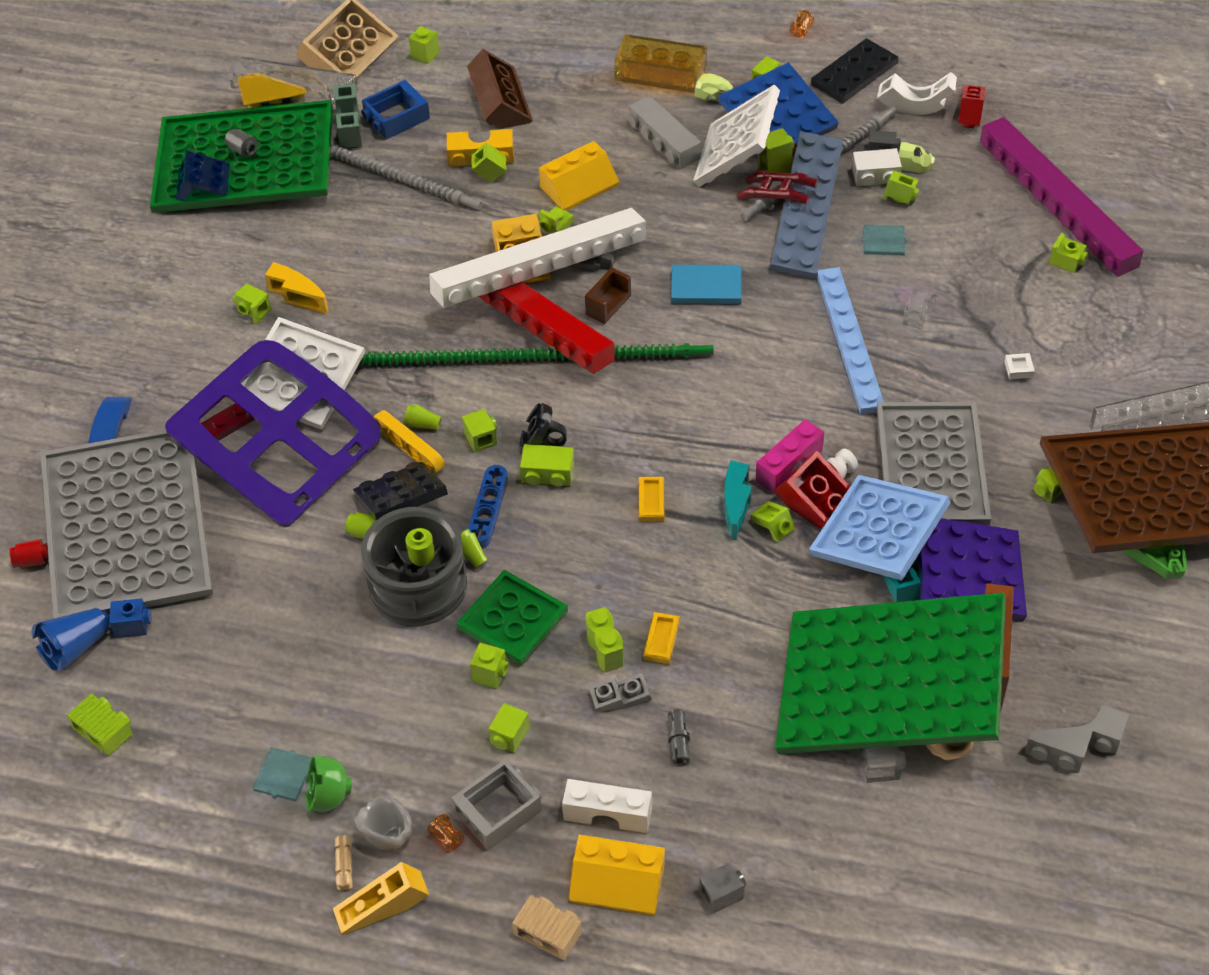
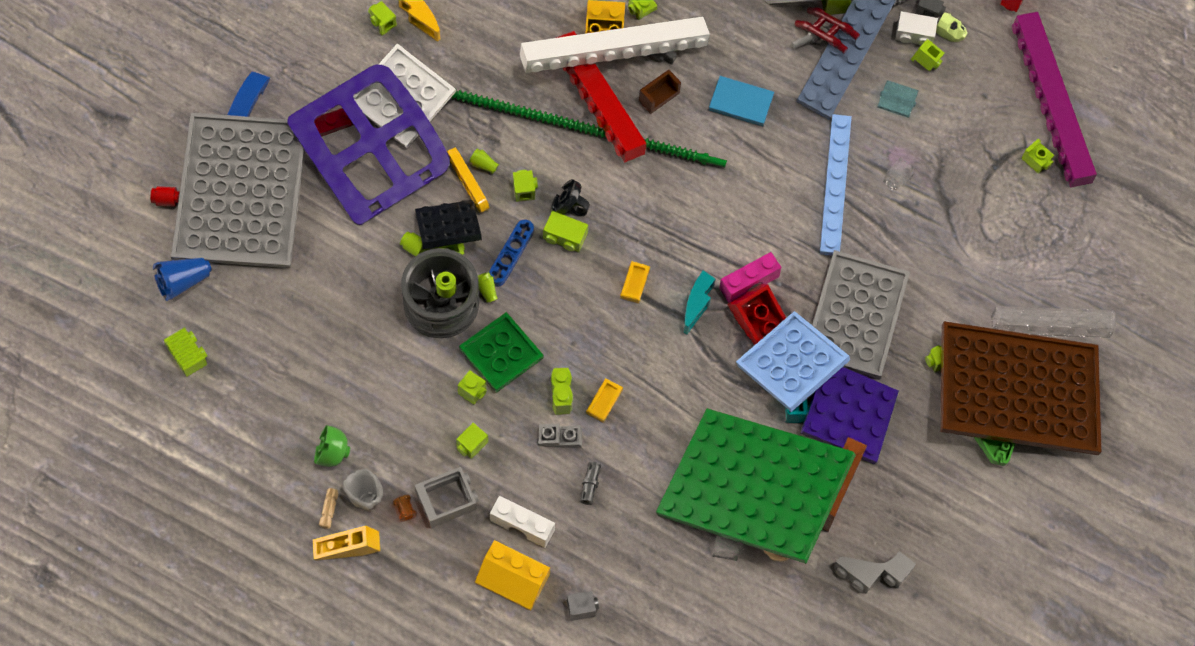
camera: 10 degrees right, 15 degrees up
(129, 618) = (225, 271): blue brick -> none
(282, 774) = (304, 427): clear light blue piece -> none
(547, 927) = (454, 598): tan brick -> none
(775, 518) = (719, 327): lime bracket -> none
(844, 462) = (786, 296): white wheel -> none
(1019, 366) = (957, 248): white plate -> none

